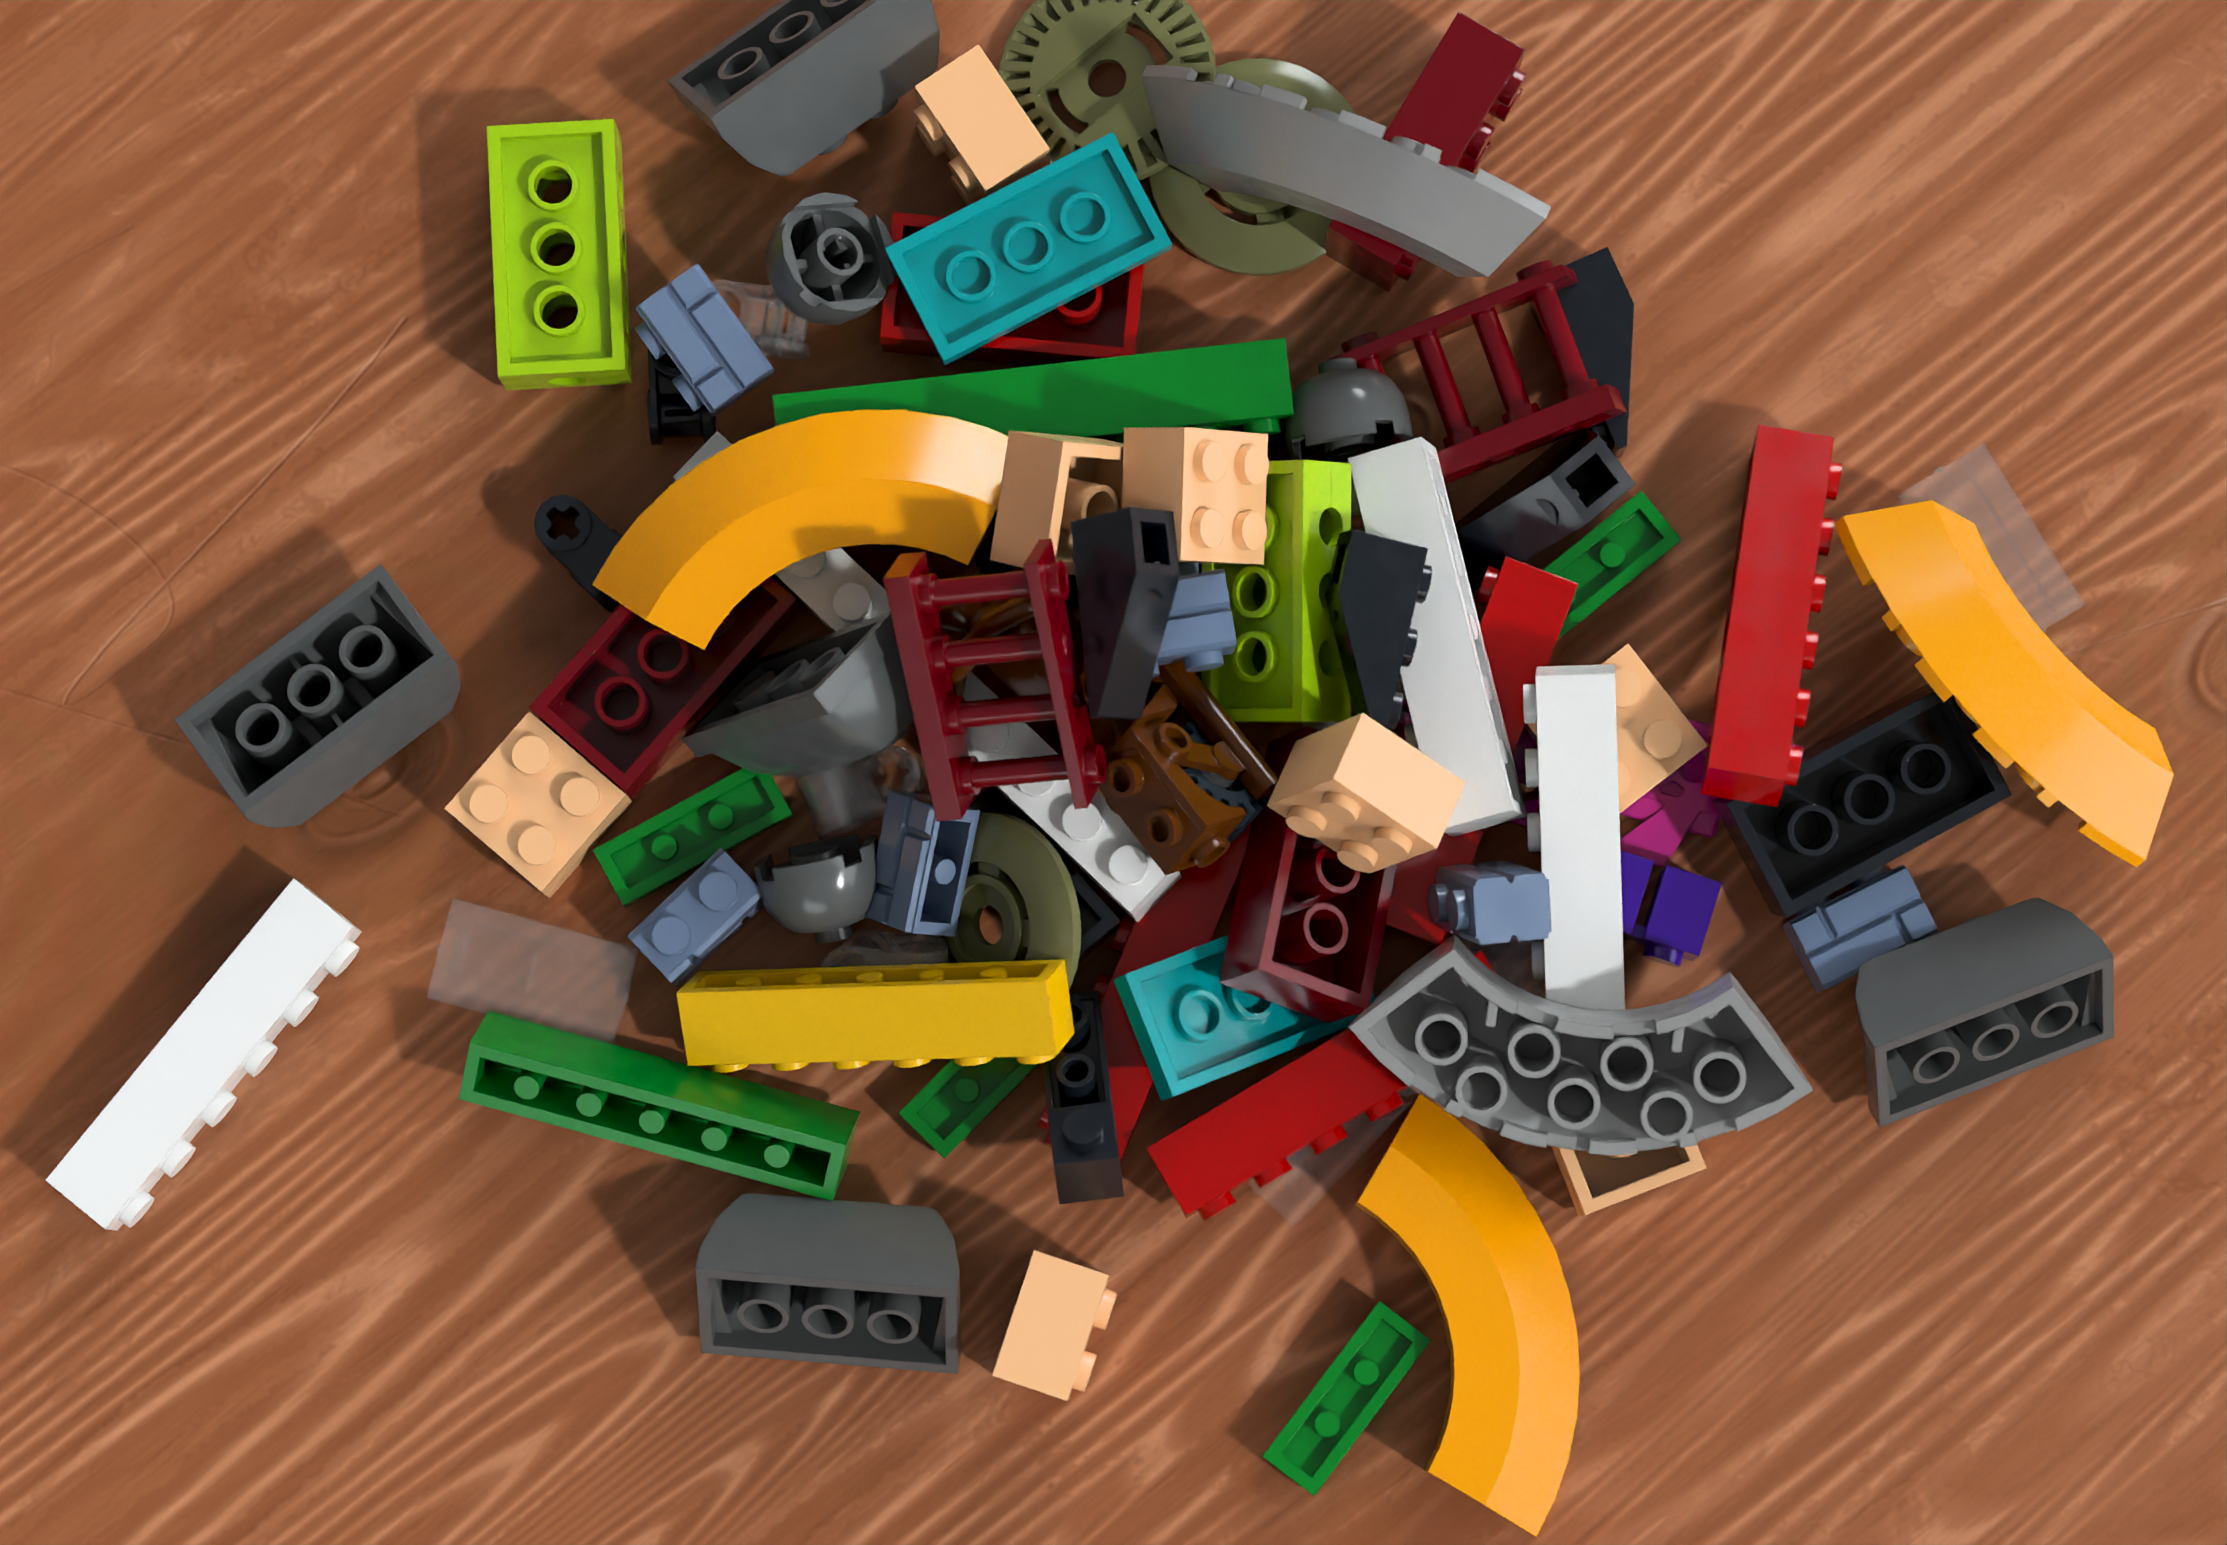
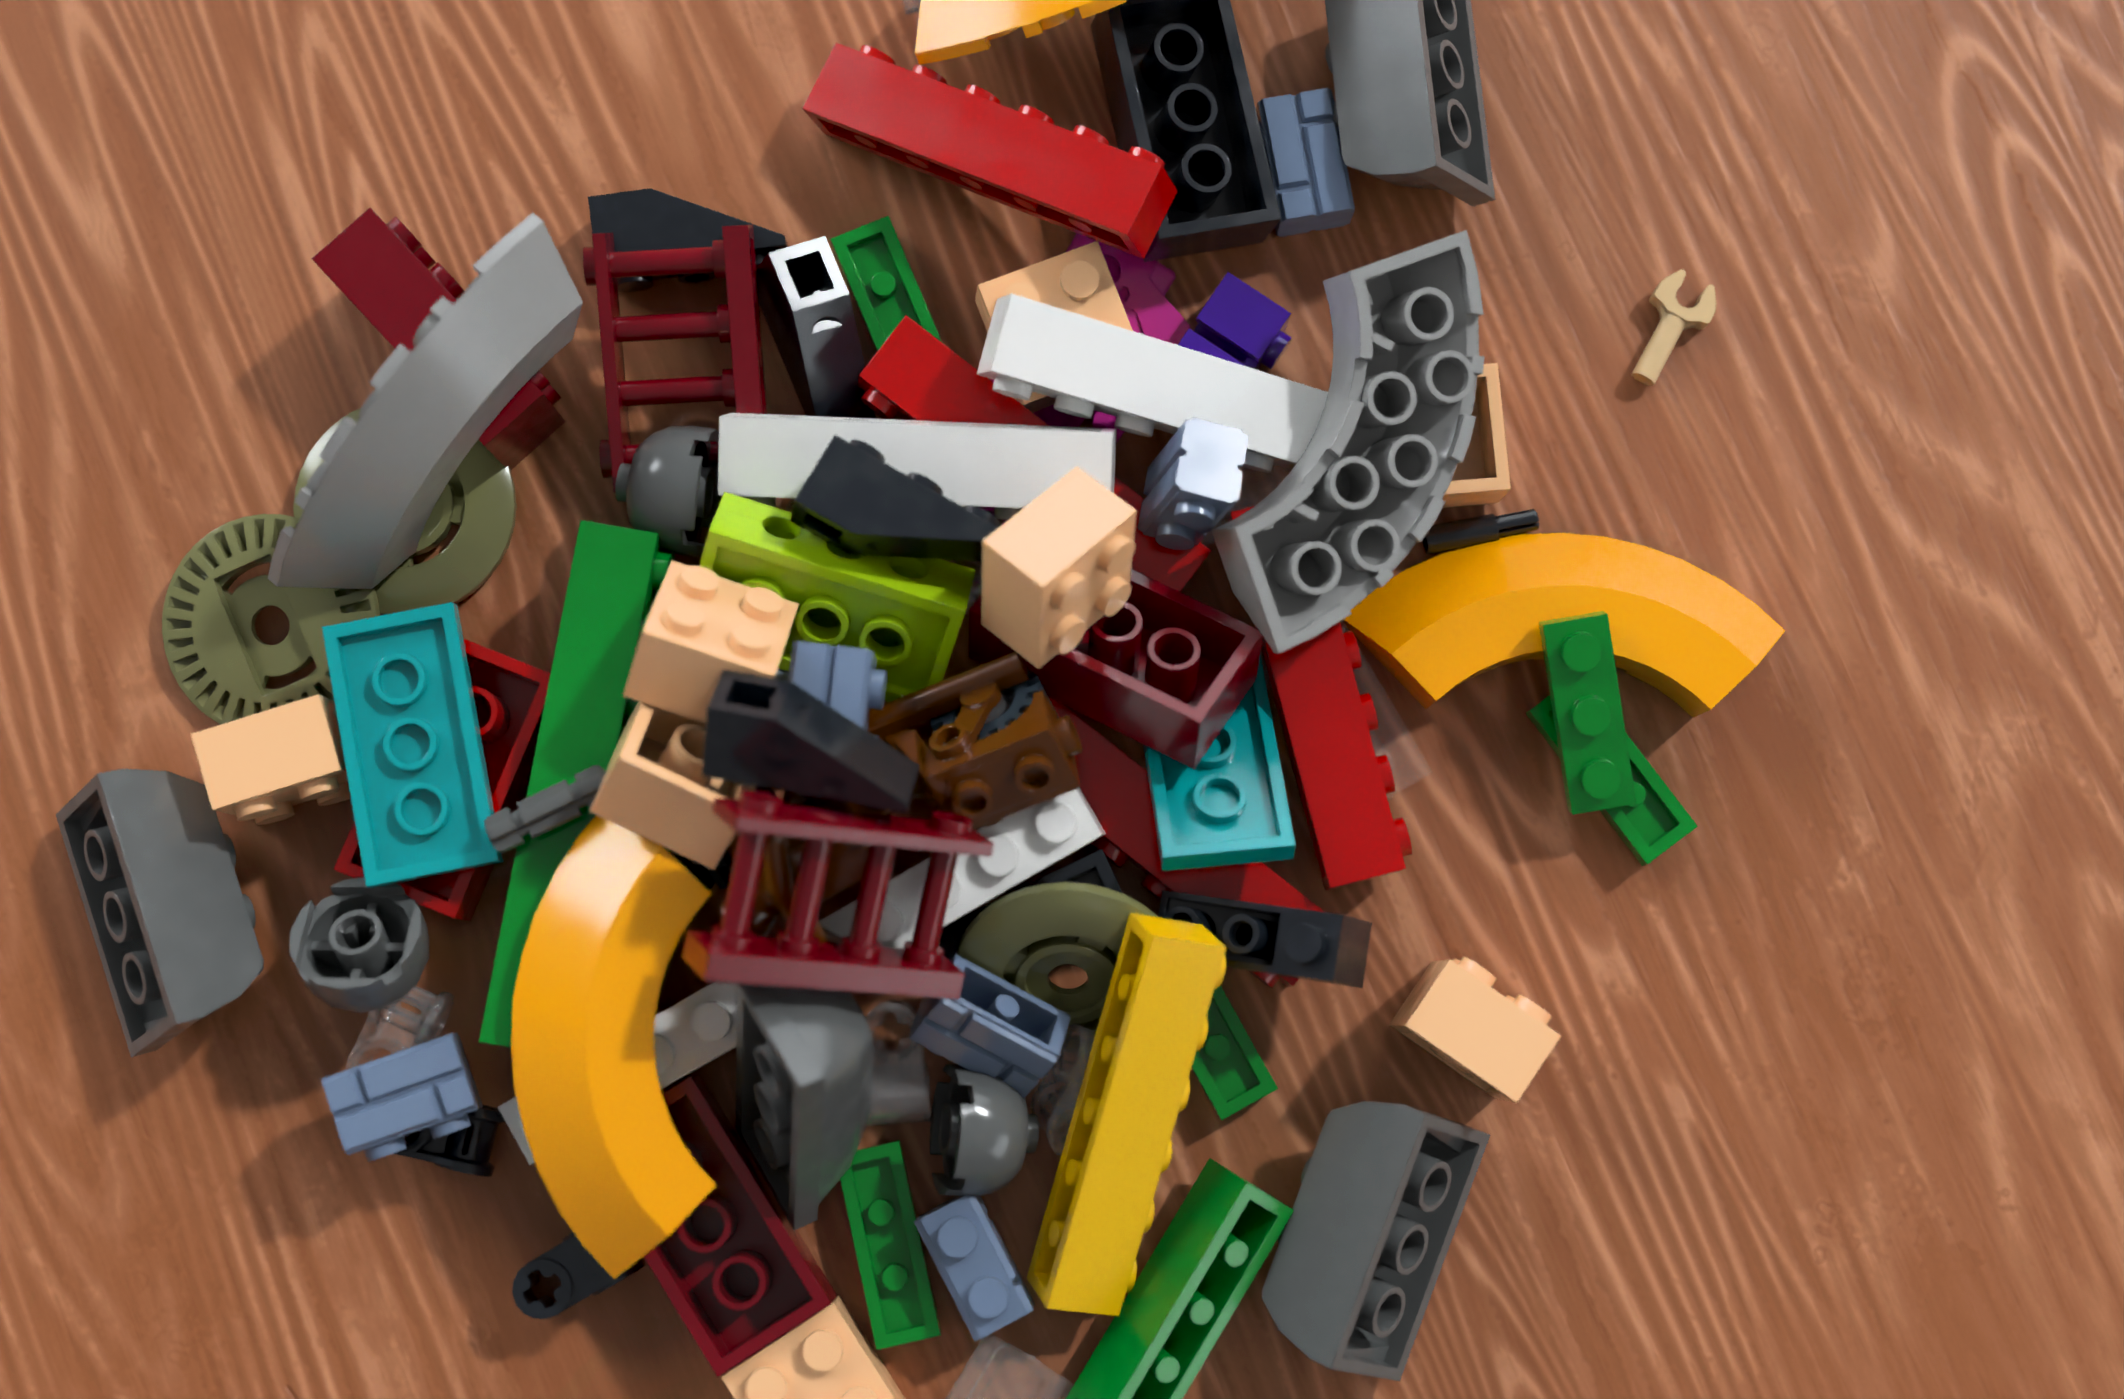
camera: 80 degrees left, 0 degrees up
(525, 229) = (235, 1243): lime brick -> none
(1001, 388) = (544, 810): none -> dark grey axle
(1389, 1351) = (1587, 712): none -> green plate
(1545, 1205) = (1478, 530): none -> black pin
(1810, 1341) = (1672, 322): none -> tan bar

